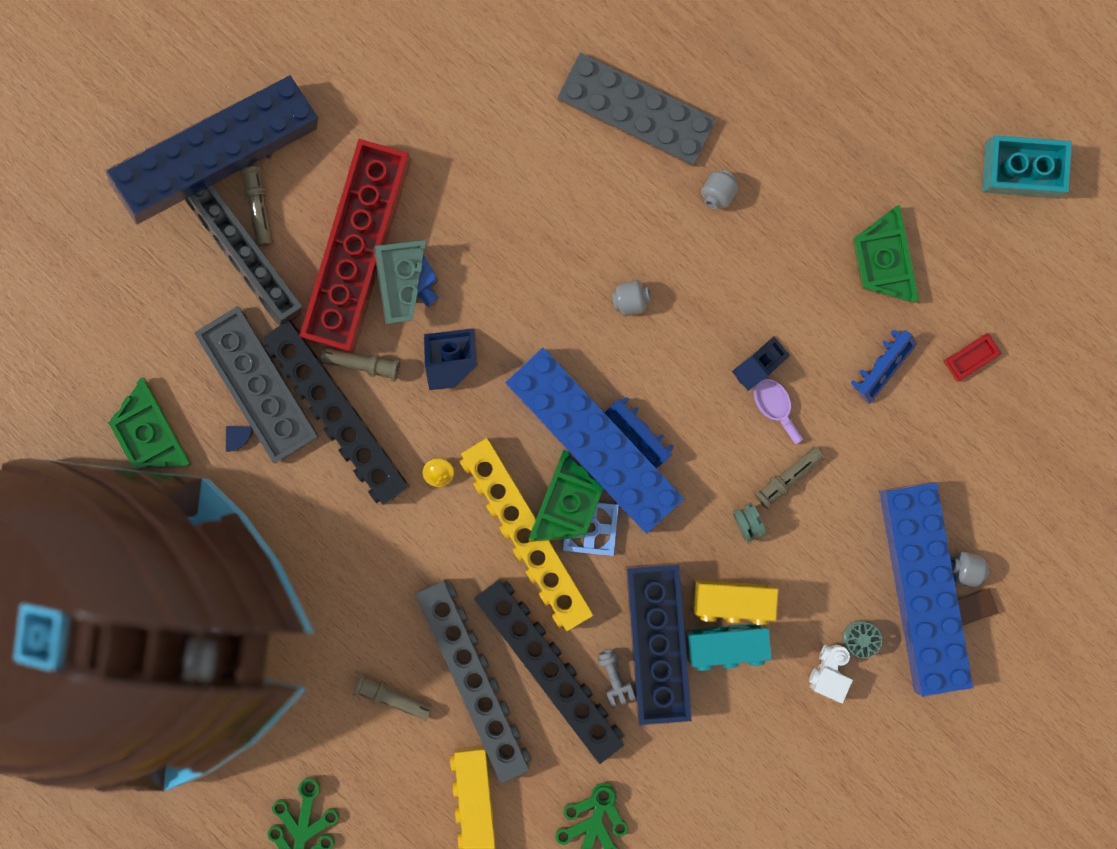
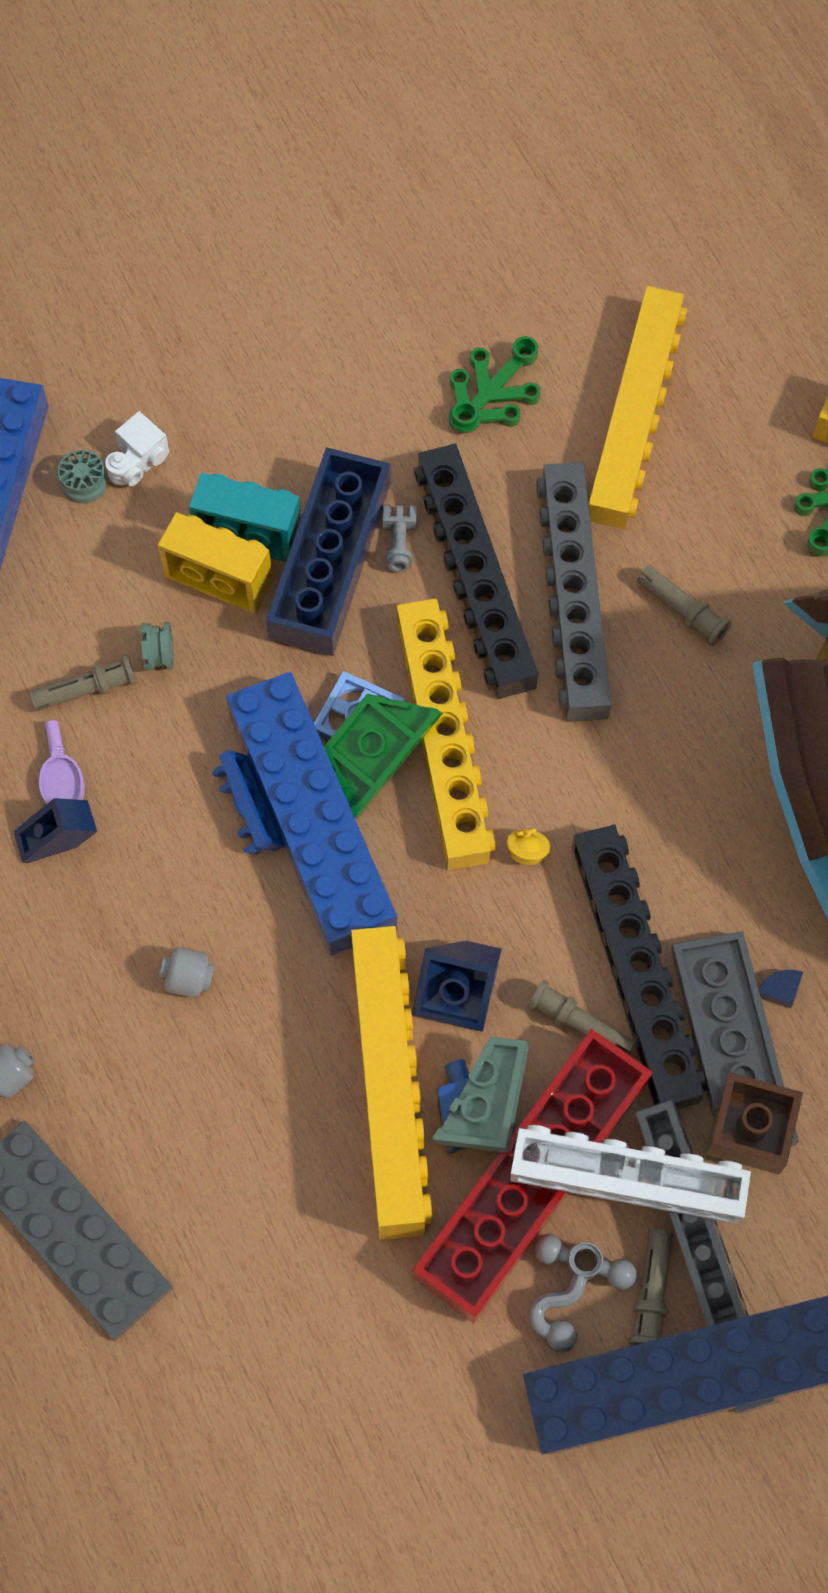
camera: 155 degrees left, 20 degrees down
(222, 326) = (754, 1123): none -> reddish brown brick
(281, 206) = (549, 1250): none -> light grey piece
(287, 256) = (631, 1175): none -> white piece
(470, 270) = (390, 1094): none -> yellow brick

